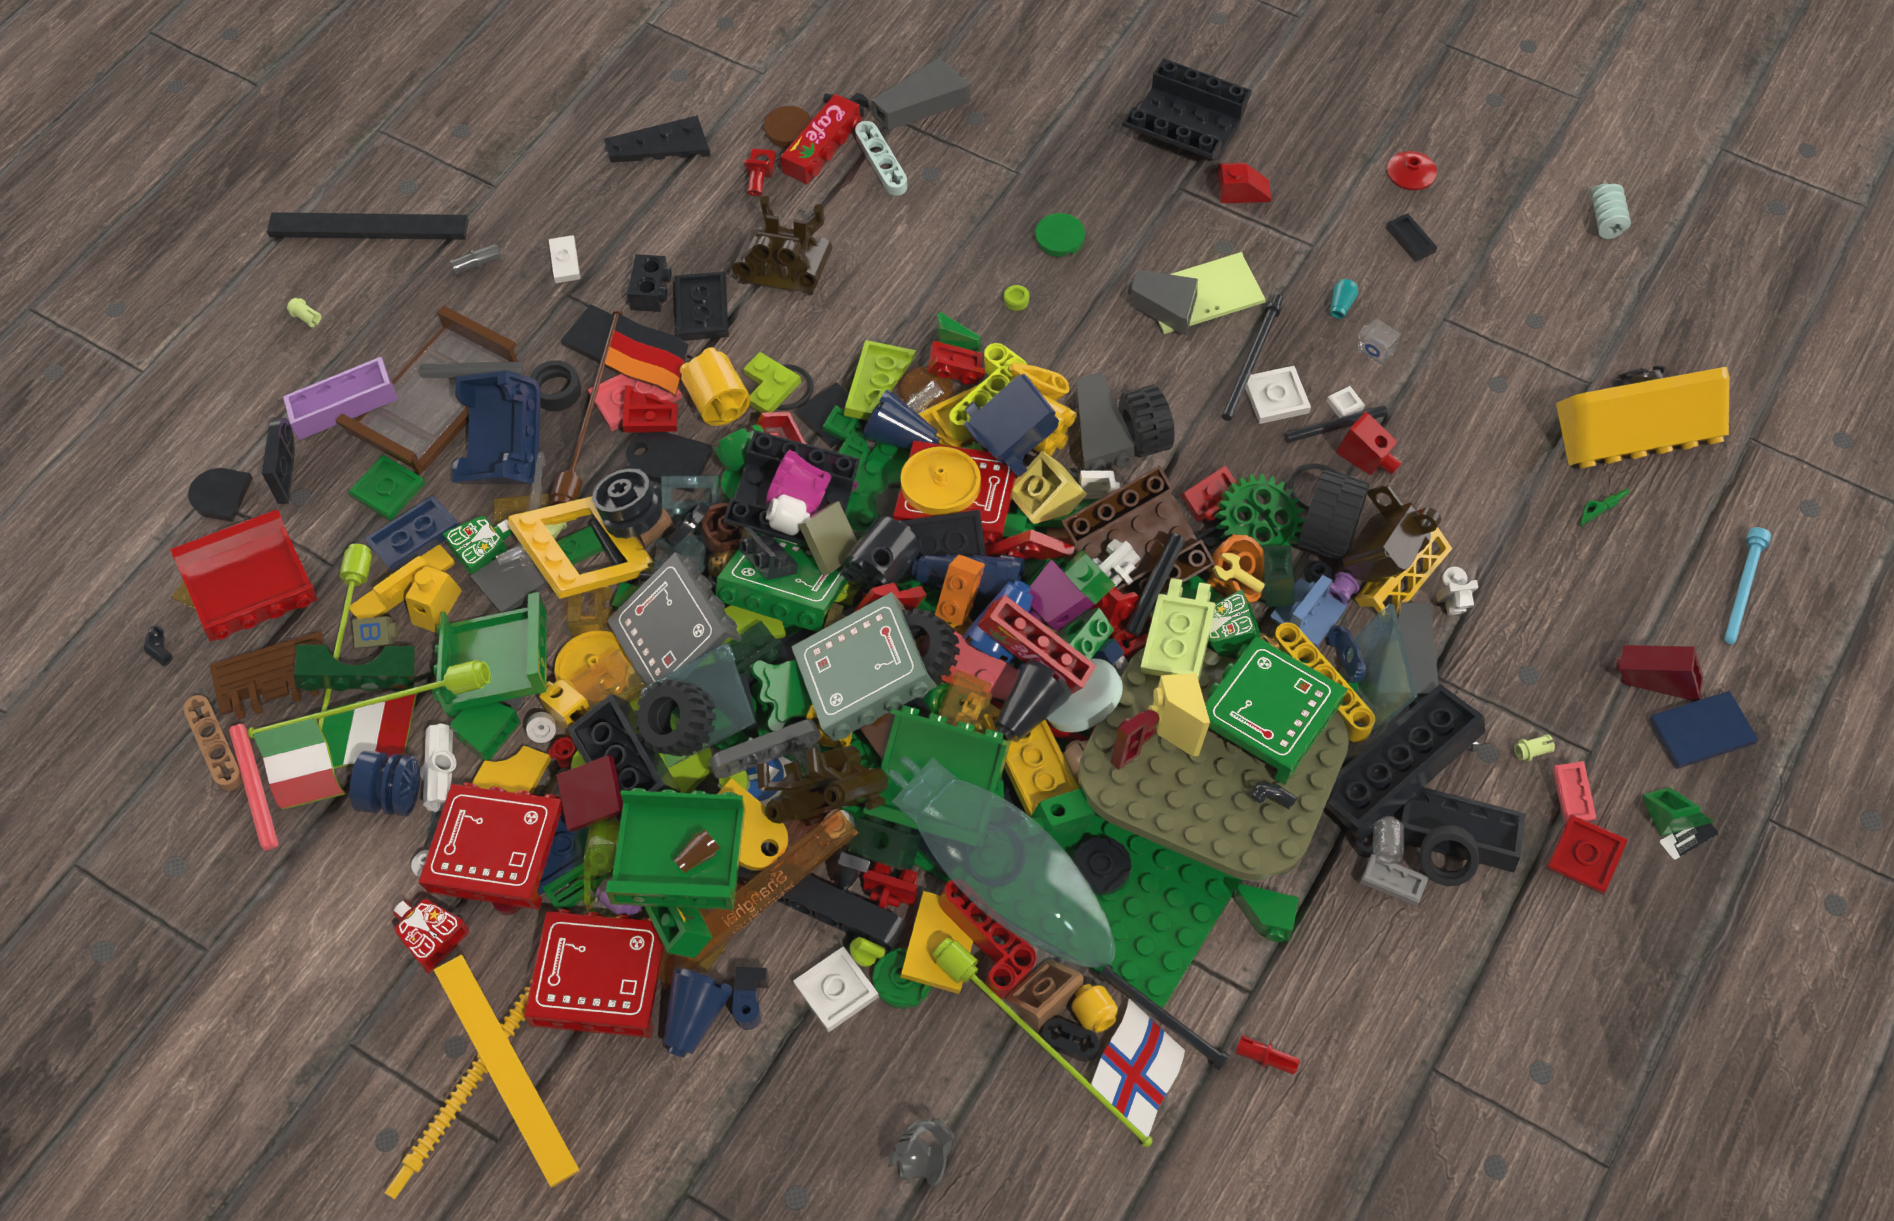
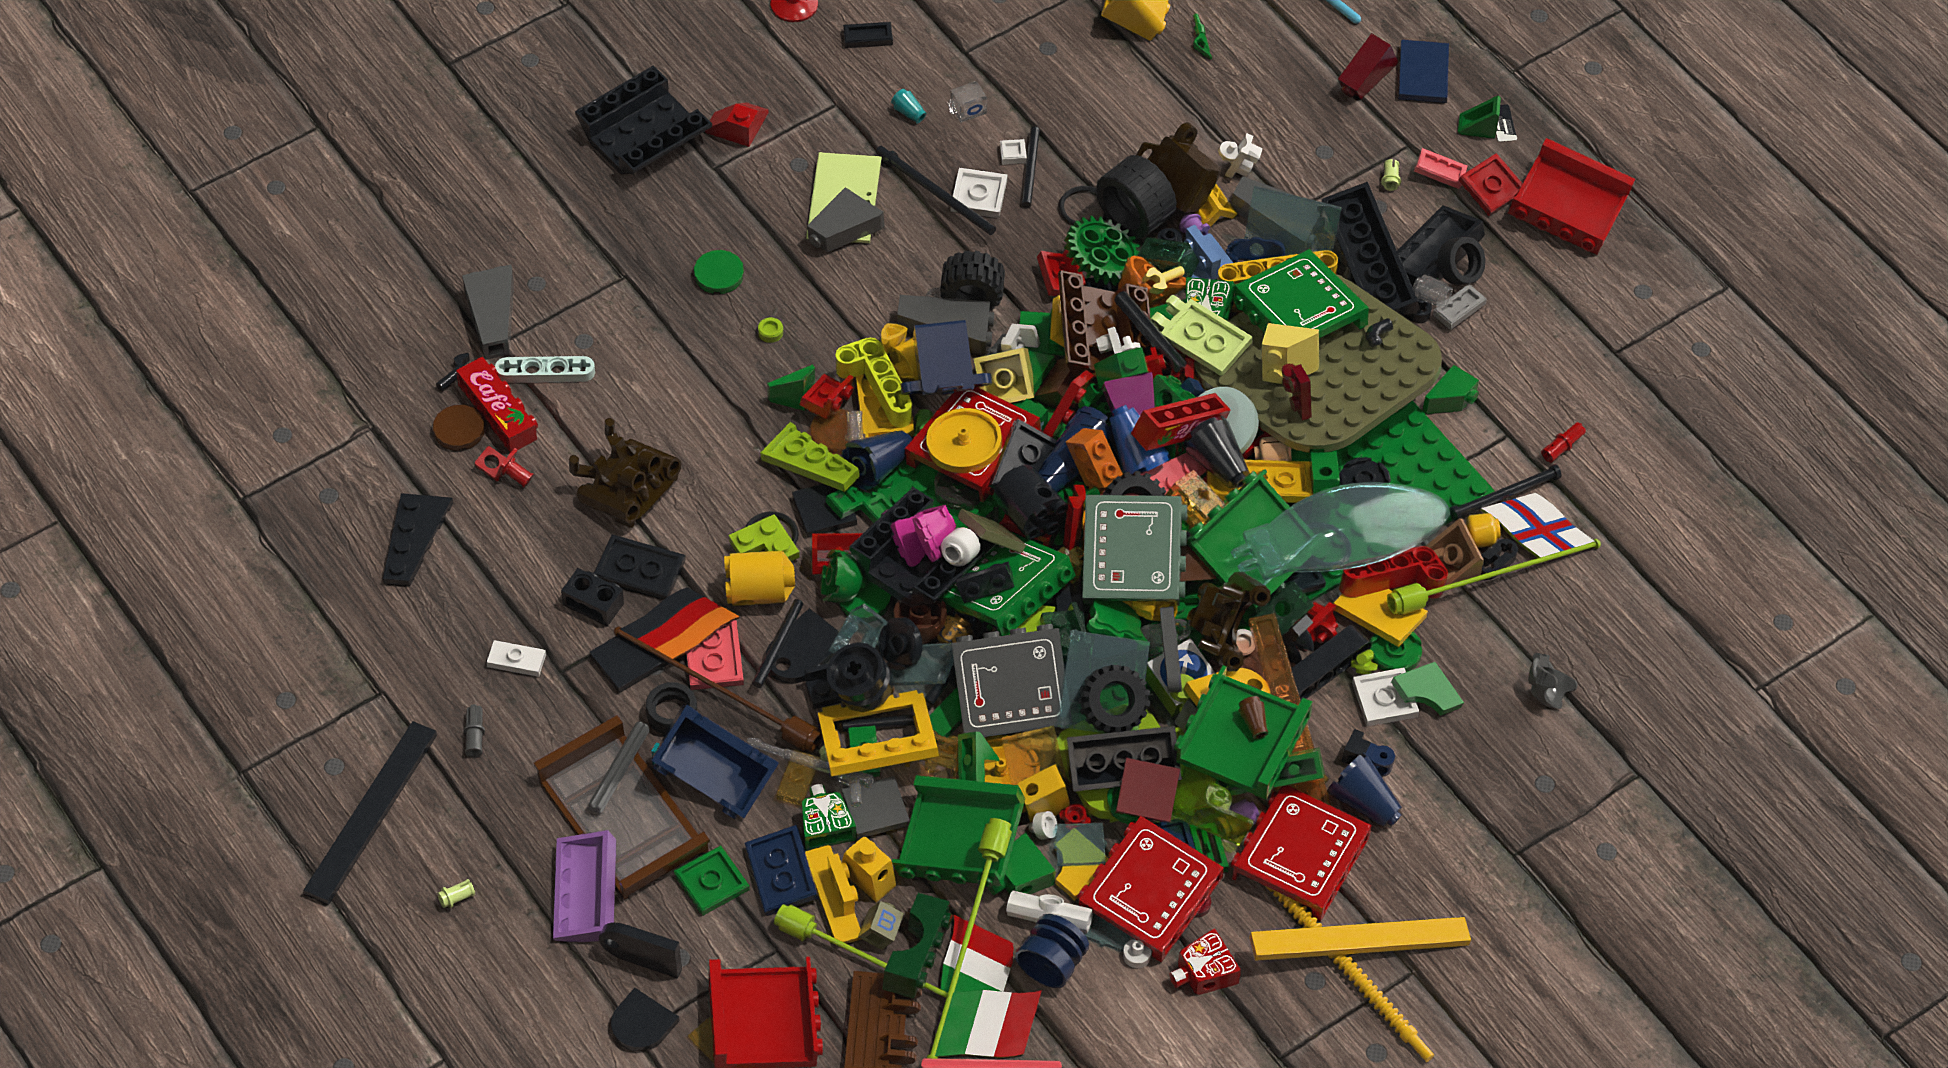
camera: 70 degrees left, 5 degrees down
(530, 765) = (1080, 844): none -> clear light blue piece
(584, 631) = (972, 755): none -> green slope
(648, 413) = (750, 642): red wing -> none
(657, 434) = (778, 643): none -> black bar
(861, 1026) = (1429, 687): none -> tile
(1369, 446) = (1072, 152): red torso -> none
(1618, 943) = (1571, 196): none -> red panel

